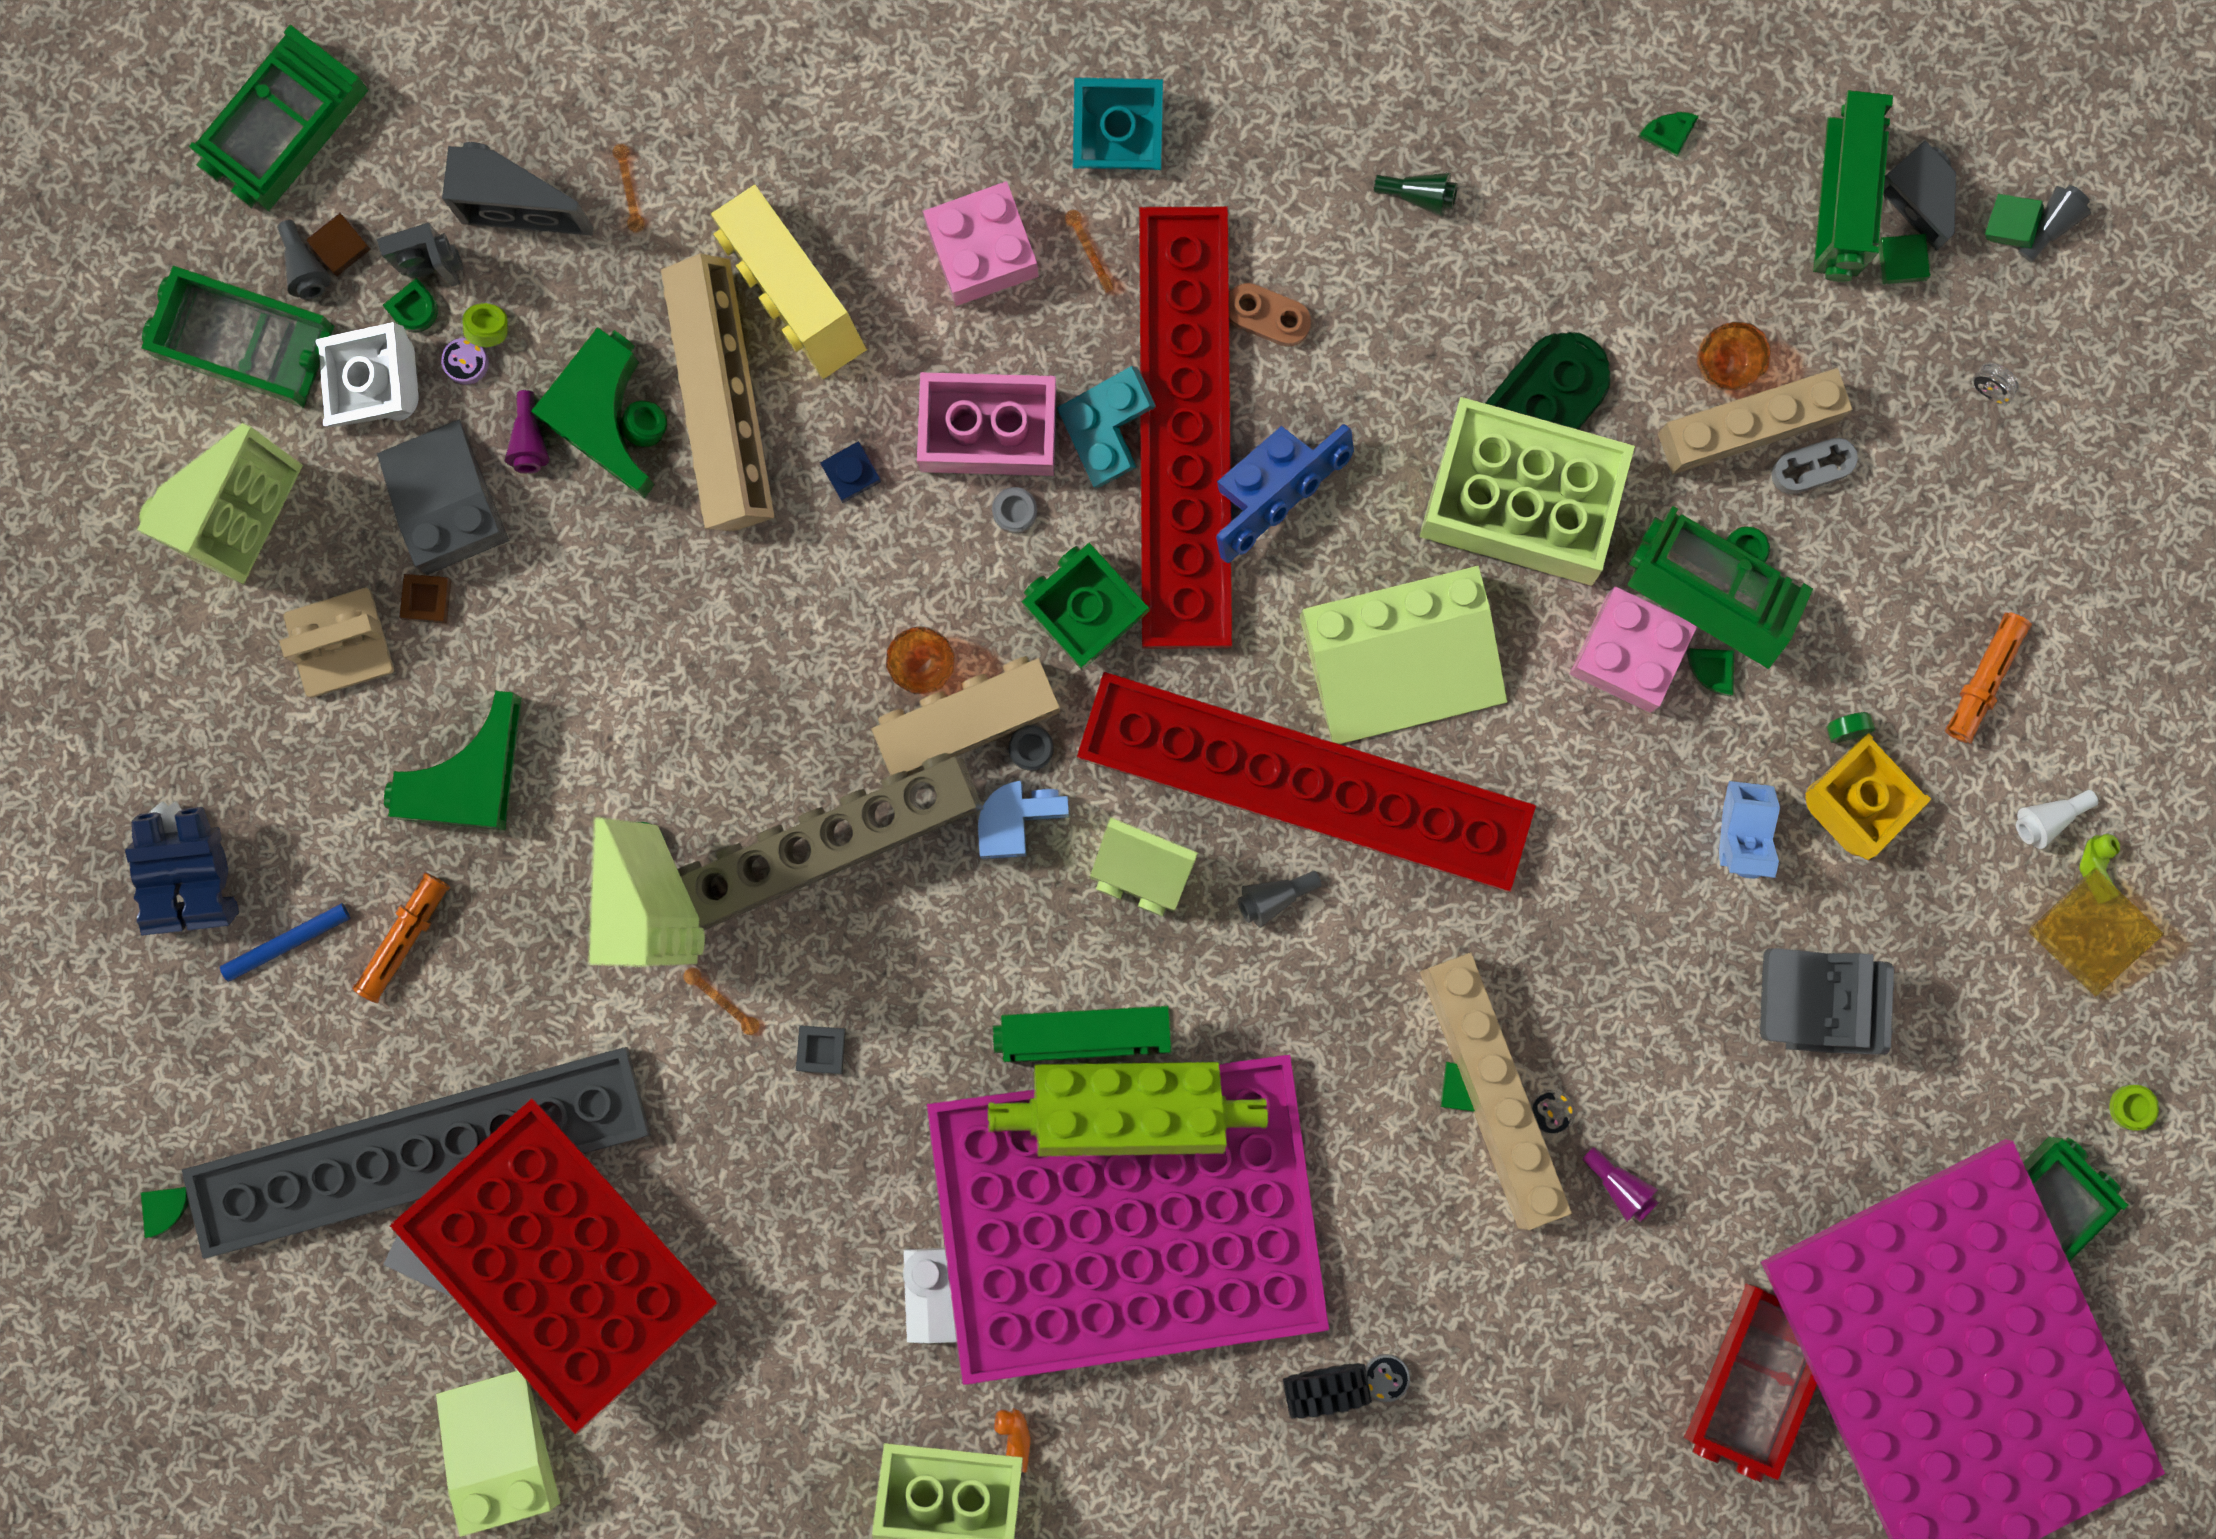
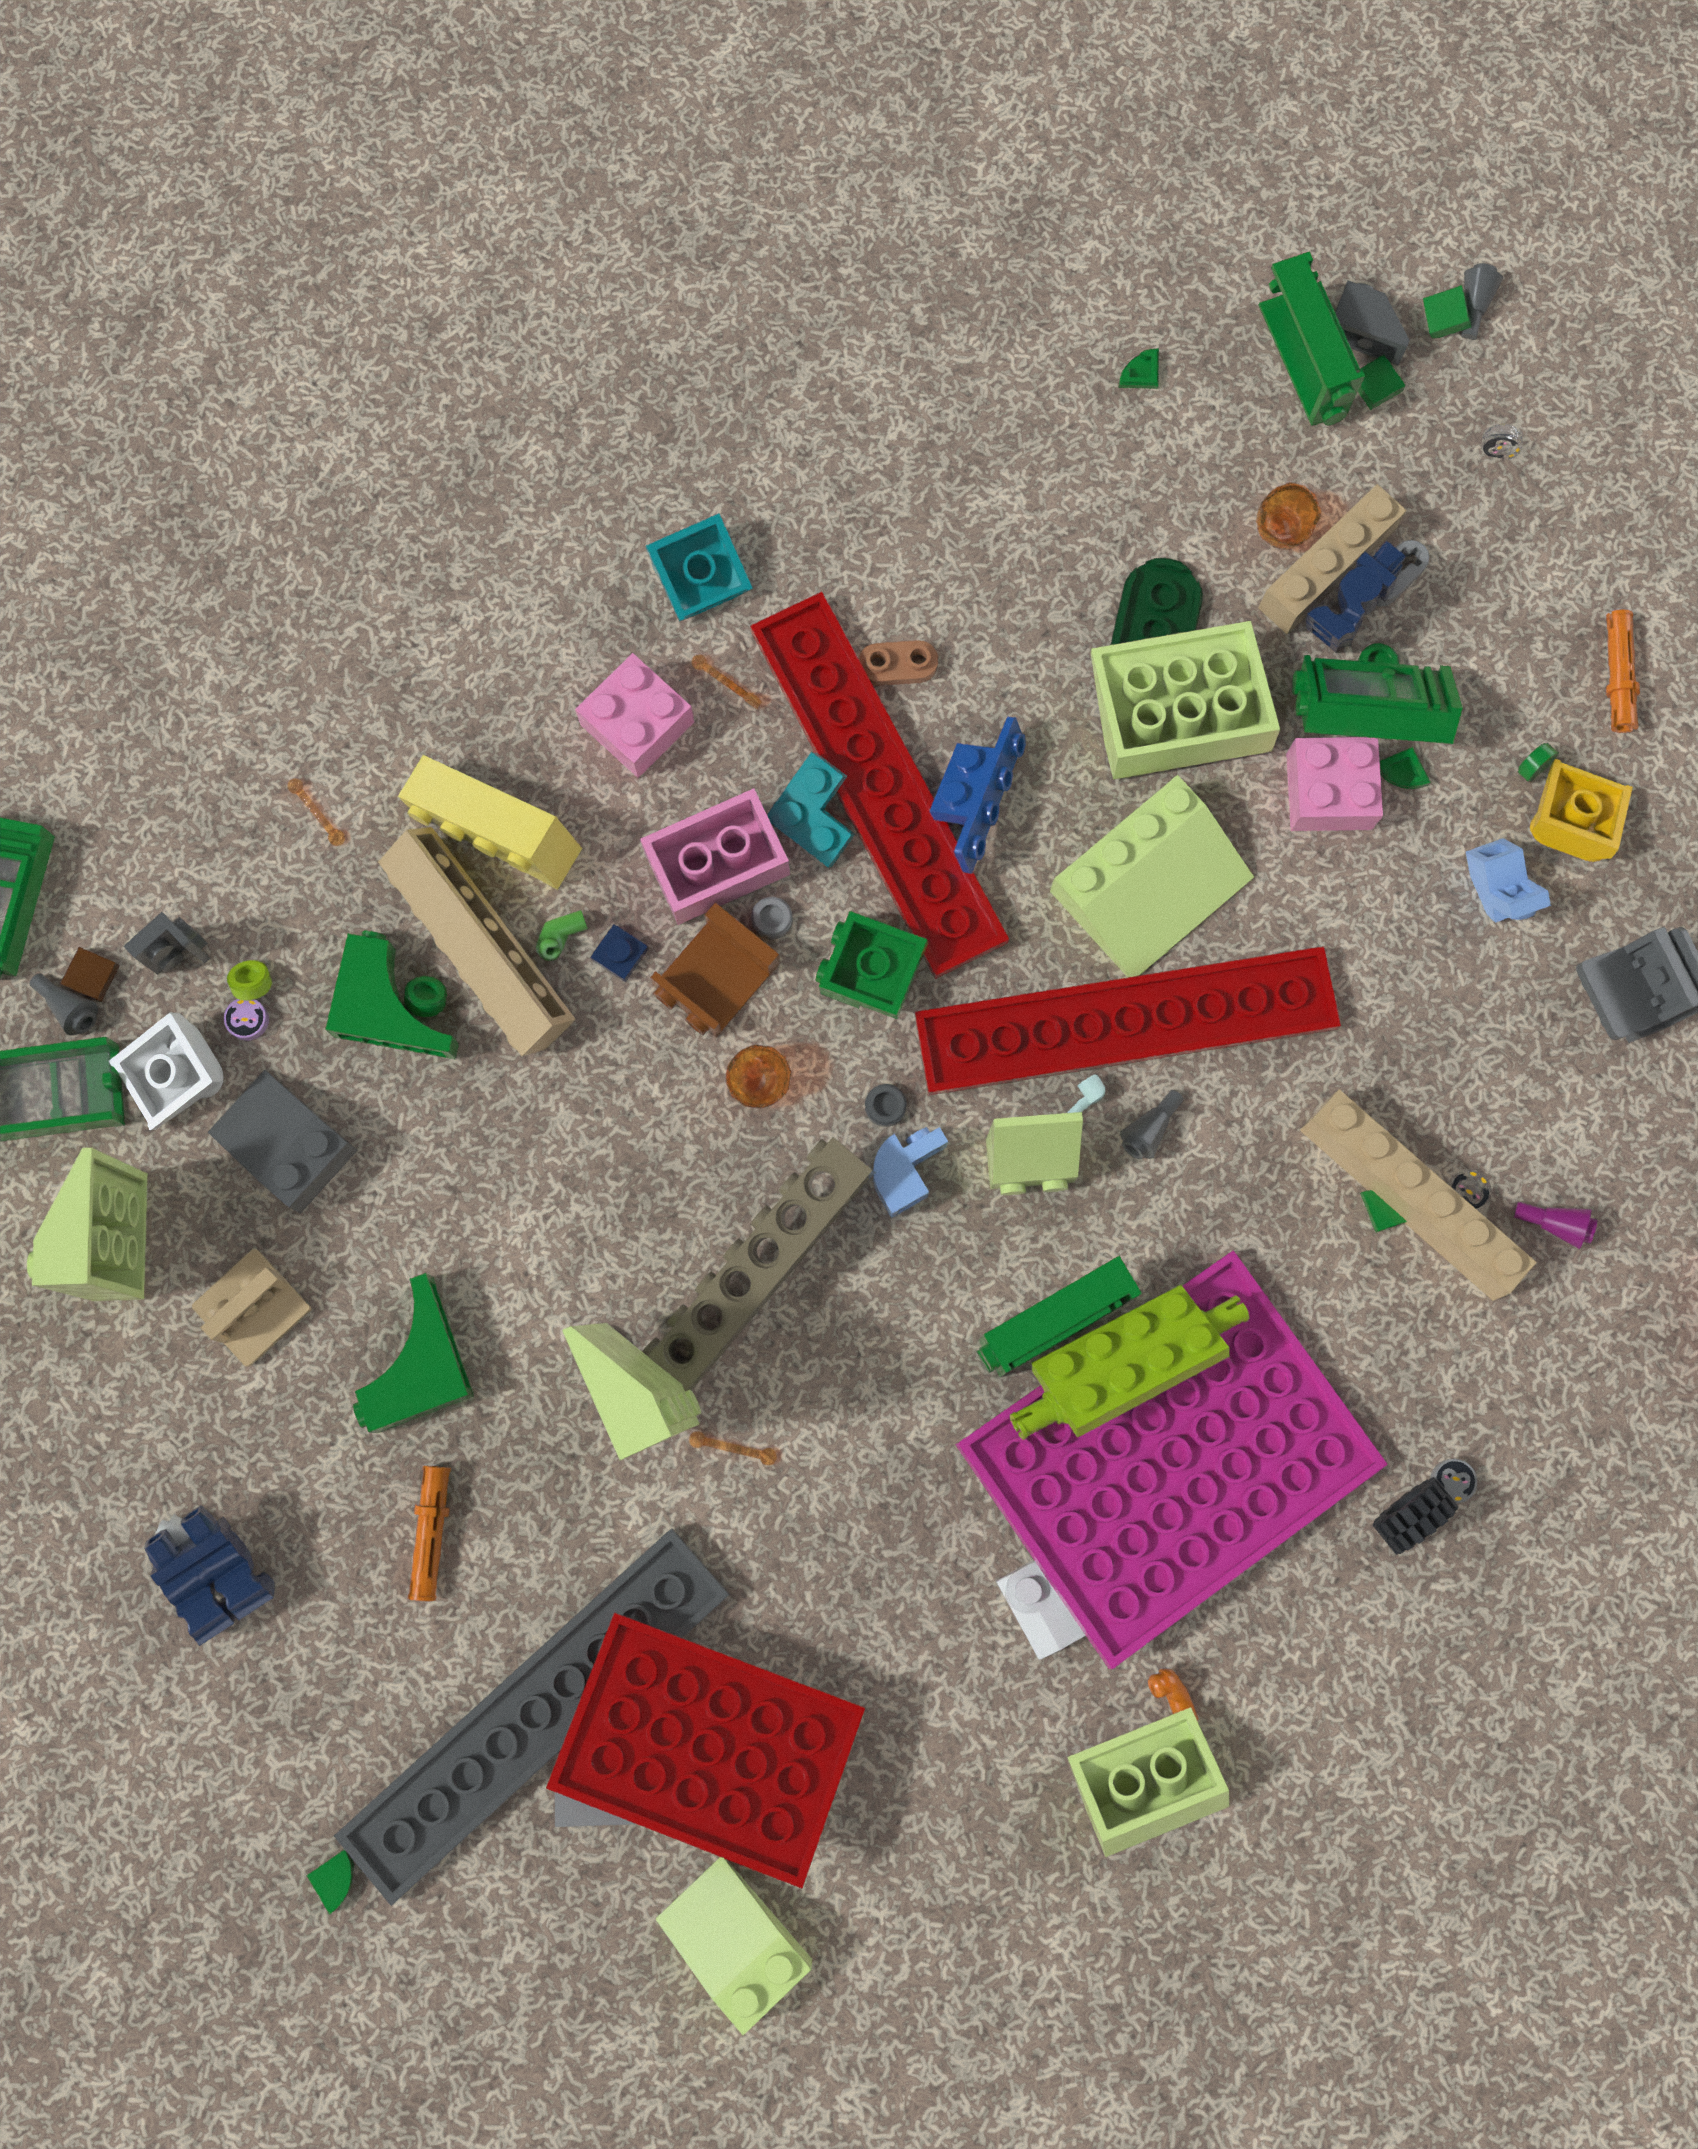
camera: 30 degrees left, 5 degrees down
(285, 942) = (328, 1589): blue piece -> none
(413, 307) = (180, 995): green tile -> none
(425, 598) = (308, 1233): reddish brown tile -> none
(496, 192) = (212, 862): dark grey slope -> none
(526, 445) = (334, 1063): magenta cone -> none
(798, 423) = (555, 934): none -> bright green arm
(820, 1049) = (838, 1446): dark grey tile -> none
(931, 538) = (716, 973): none -> dark orange panel
(967, 718) = (821, 1106): tan brick -> none
(1237, 832) = (1092, 1090): none -> light aqua hand
(1429, 192) = (976, 505): dark green cone -> none
(1755, 471) = (1357, 597): none -> dark blue hips

